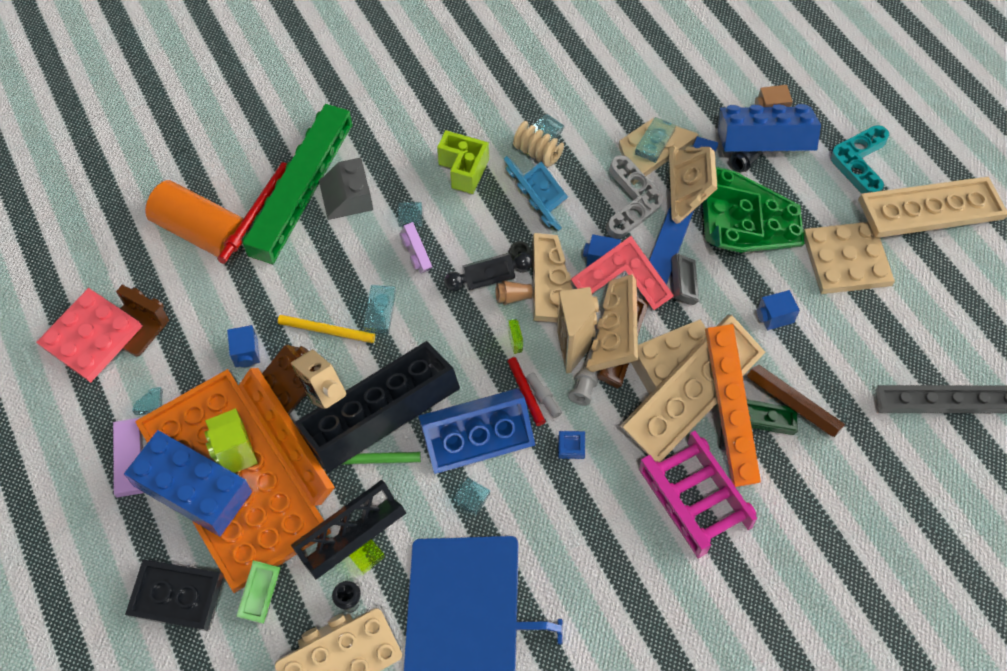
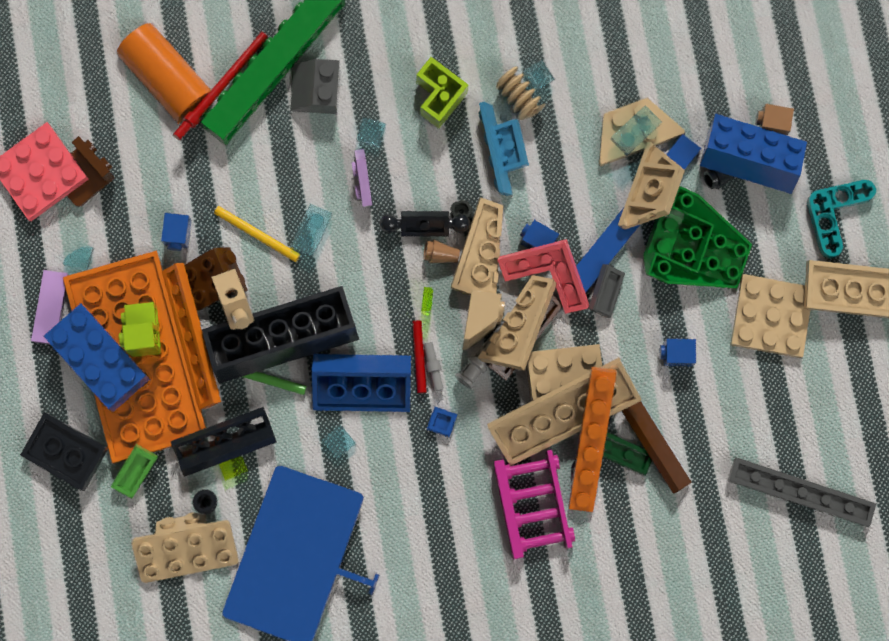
camera: 10 degrees right, 20 degrees up
(639, 203) = (595, 194): light grey beam -> none

